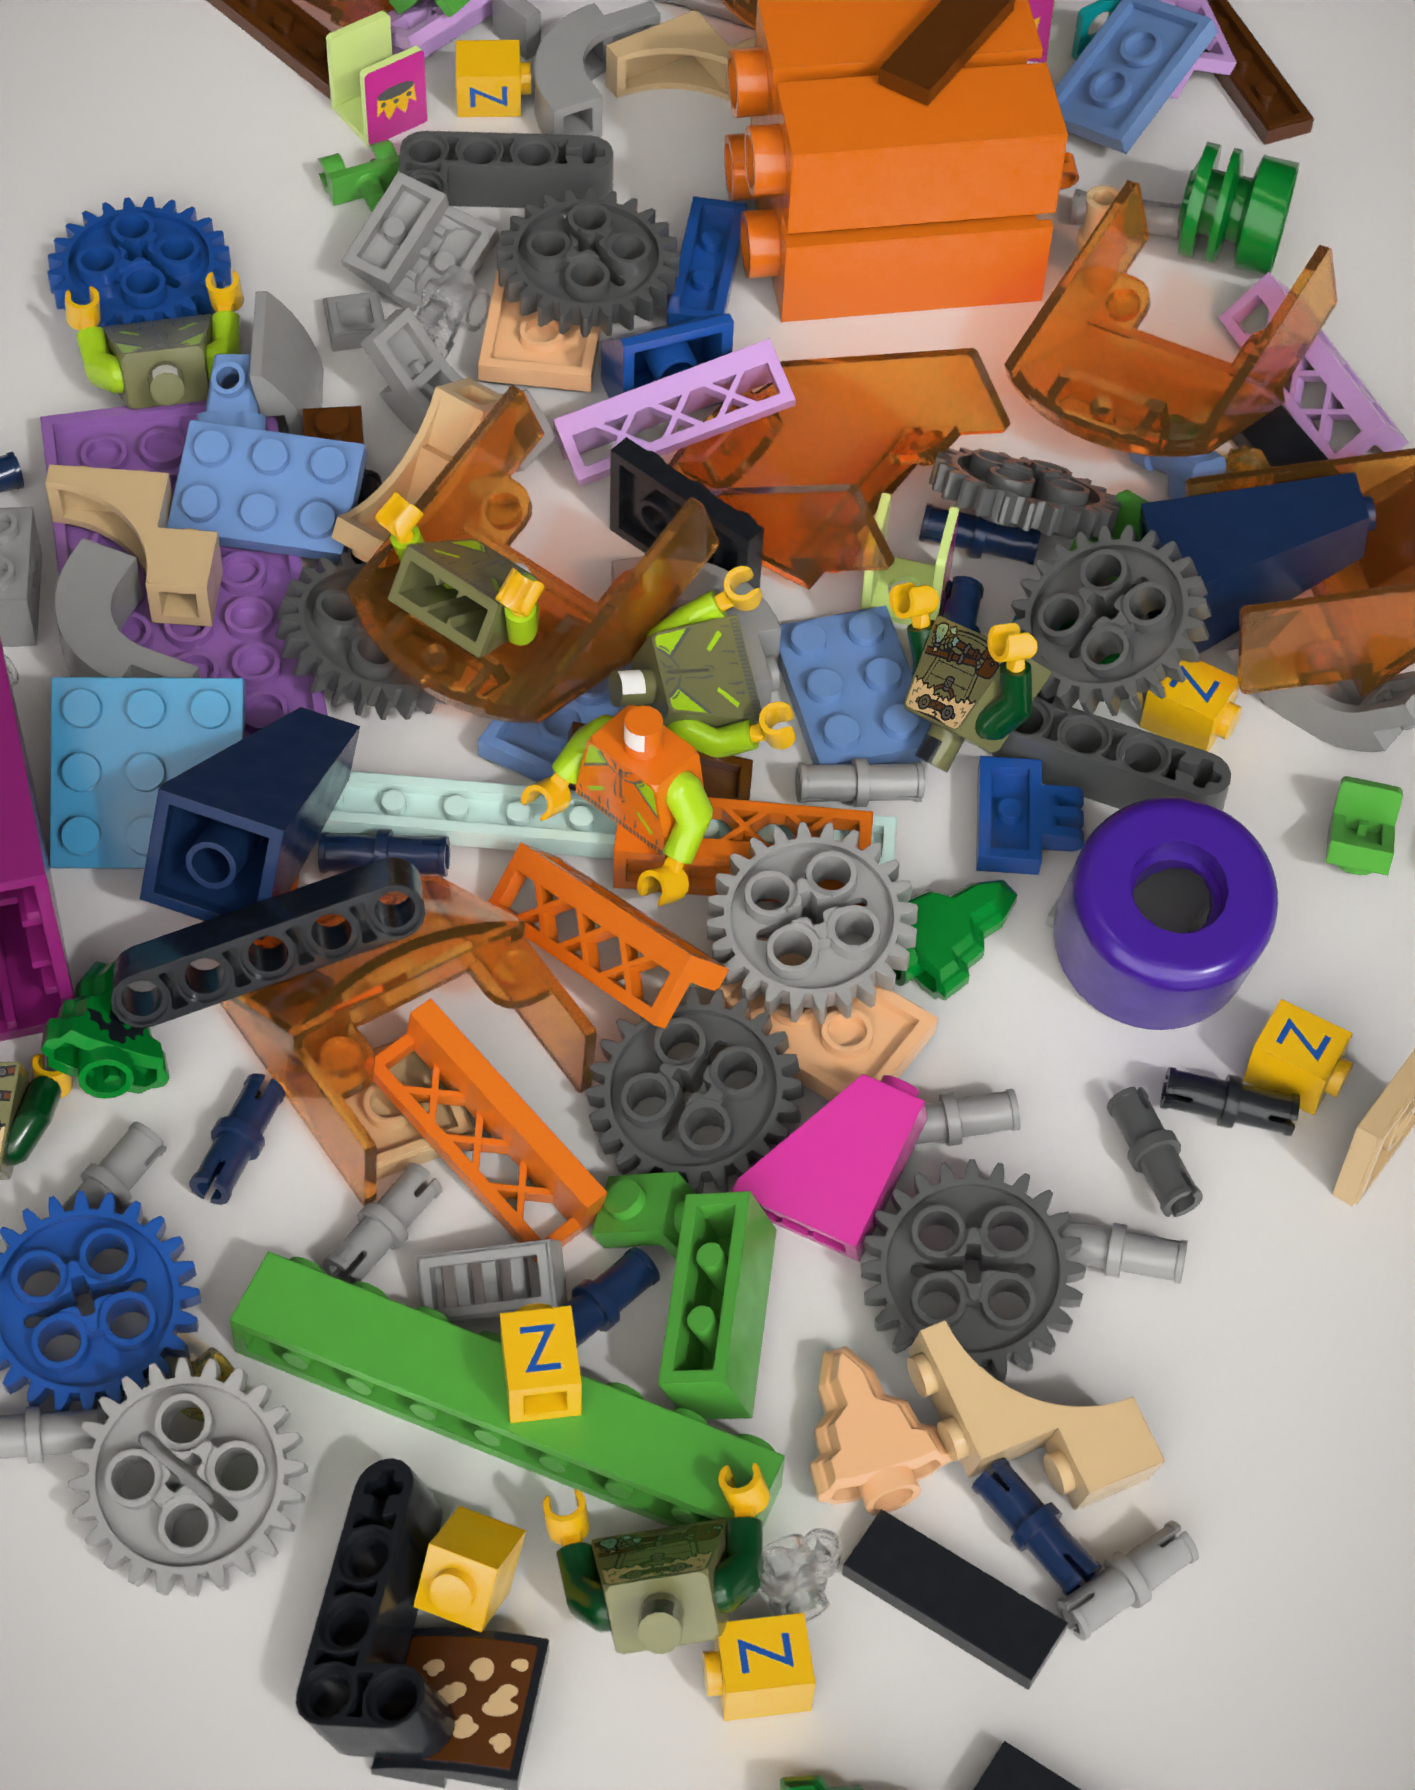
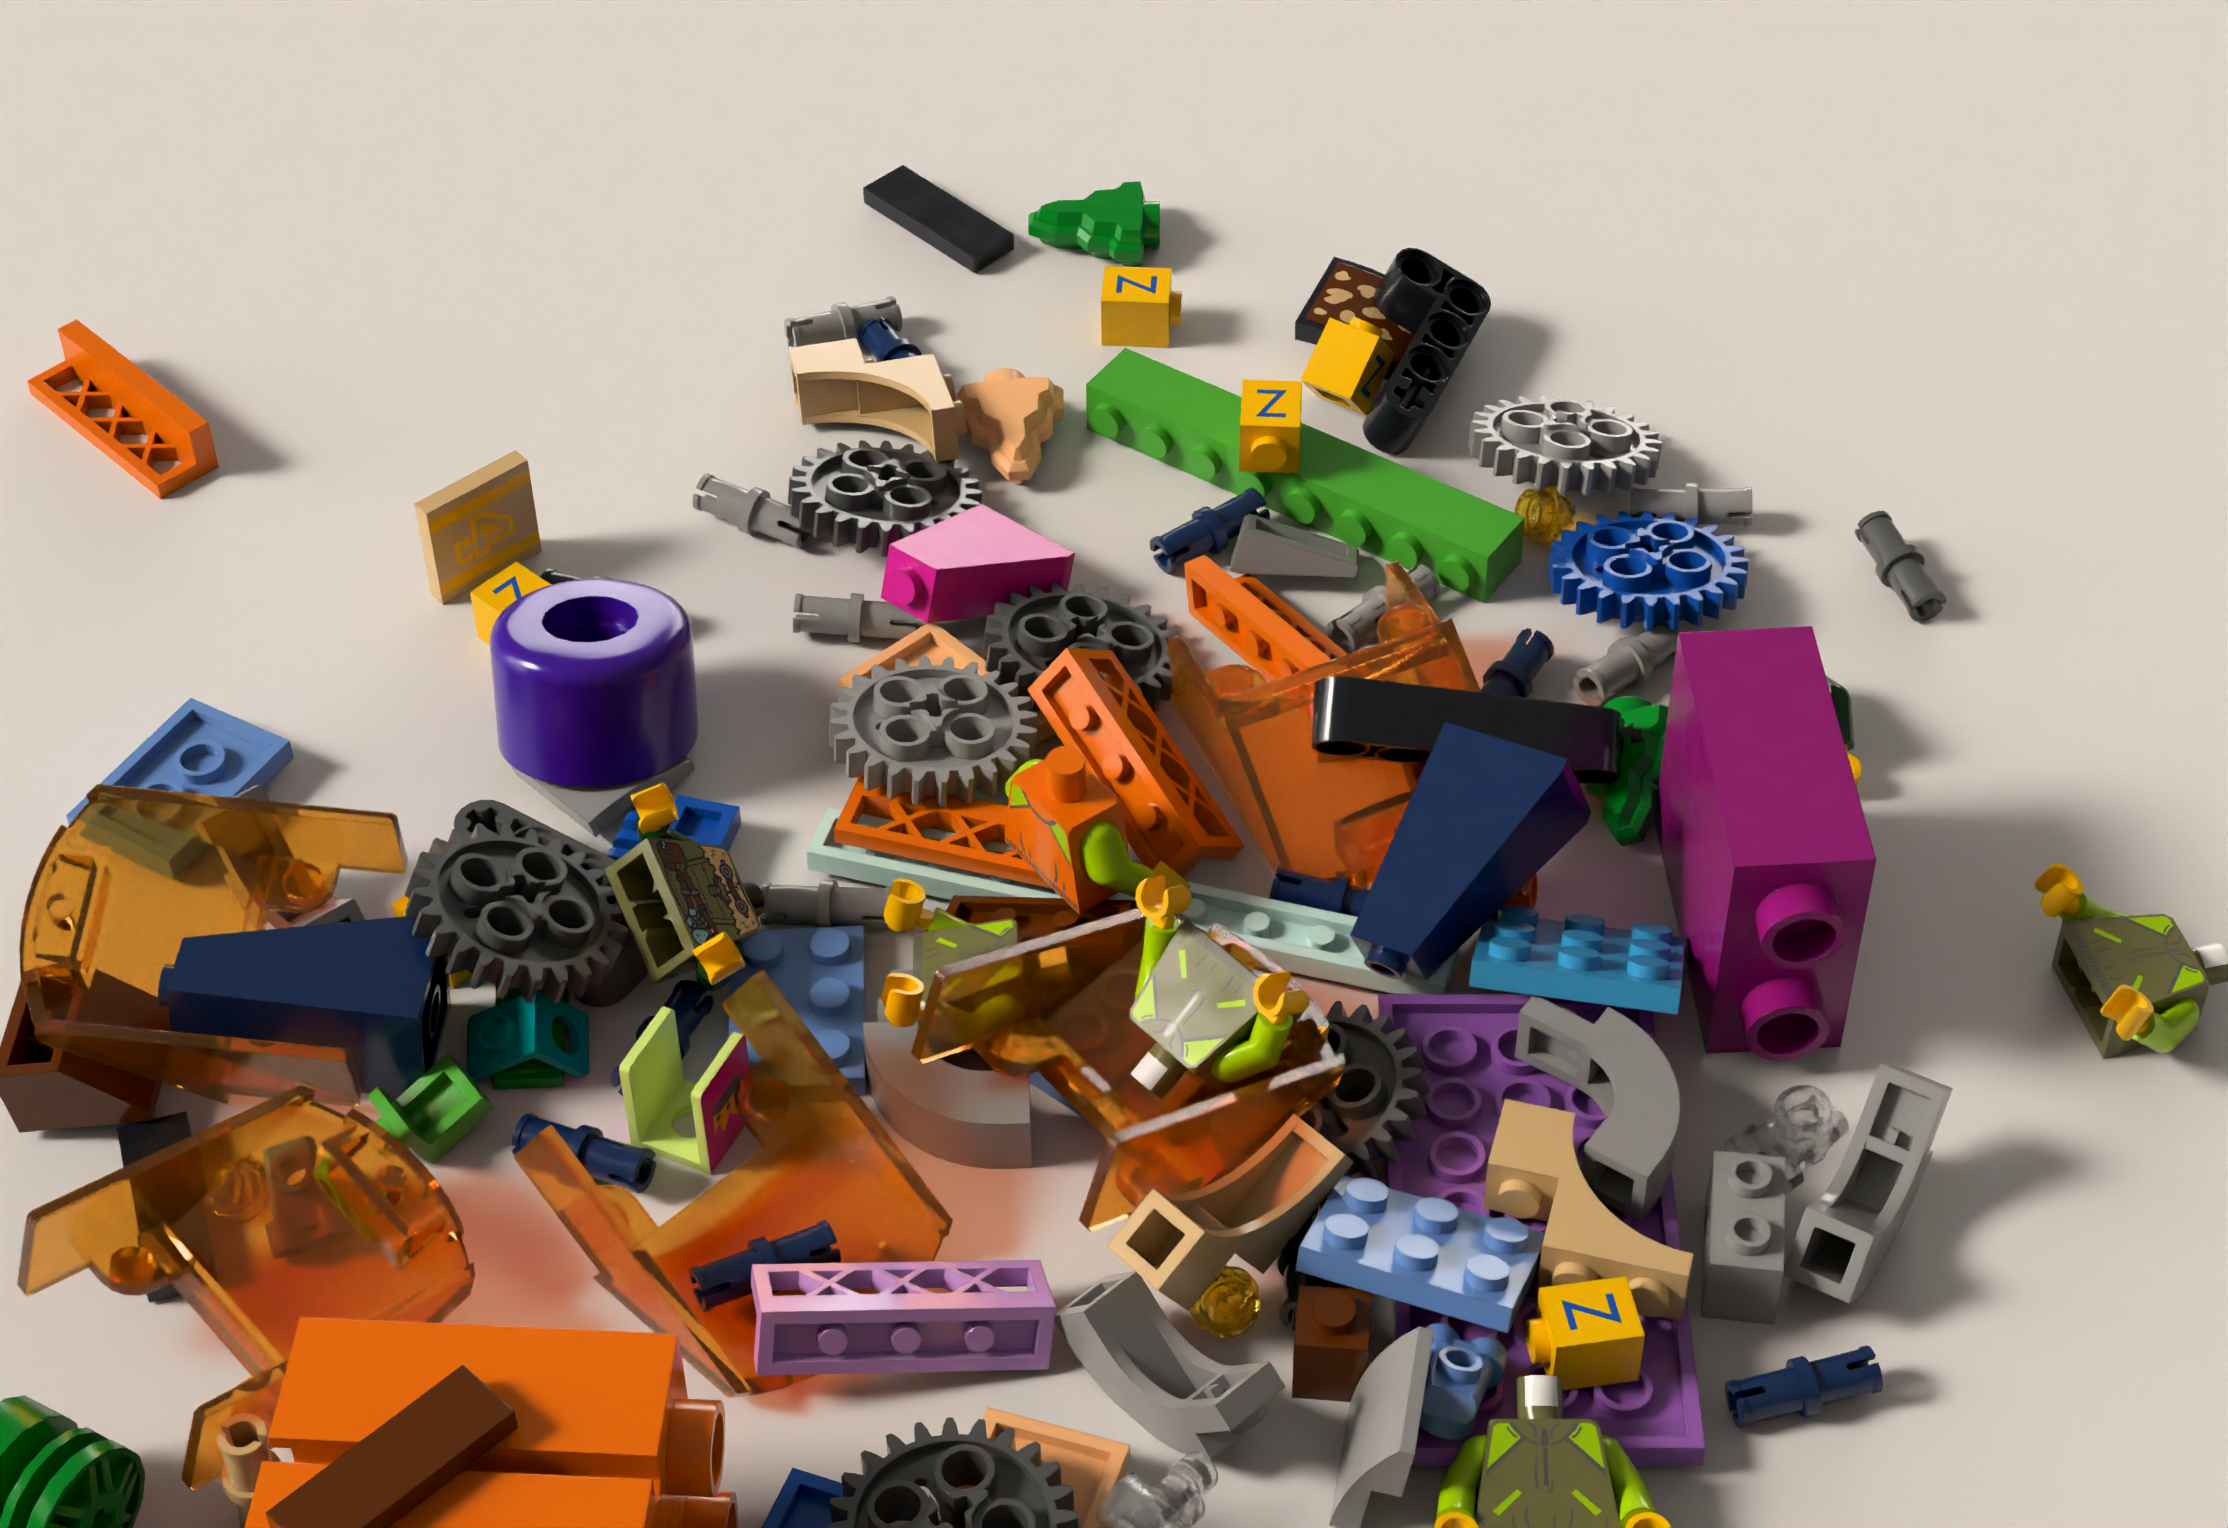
camera: 165 degrees left, 10 degrees down
(133, 439) = (1587, 1333): none -> yellow brick
(642, 1211) = (1148, 578): bright green bracket -> none
(650, 494) = (941, 1147): black plate -> none
(663, 351) = (881, 1376): blue slope -> none
(663, 1582) = (1203, 321): torso -> none
(718, 1305) = (1110, 487): bright green brick -> none
(793, 445) = (731, 1276): none -> dark blue pin
(797, 1571) = (1097, 327): clear plate -> none
(953, 934) = (790, 762): green rock -> none
(954, 1599) = (974, 335): black tile -> none
(1023, 493) = (468, 1132): dark grey gear -> none
(1154, 1151) = (686, 569): dark grey pin -> none
(1330, 368) = (57, 1342): lavender fence -> none
(1363, 826) = (349, 777): bright green bracket -> none

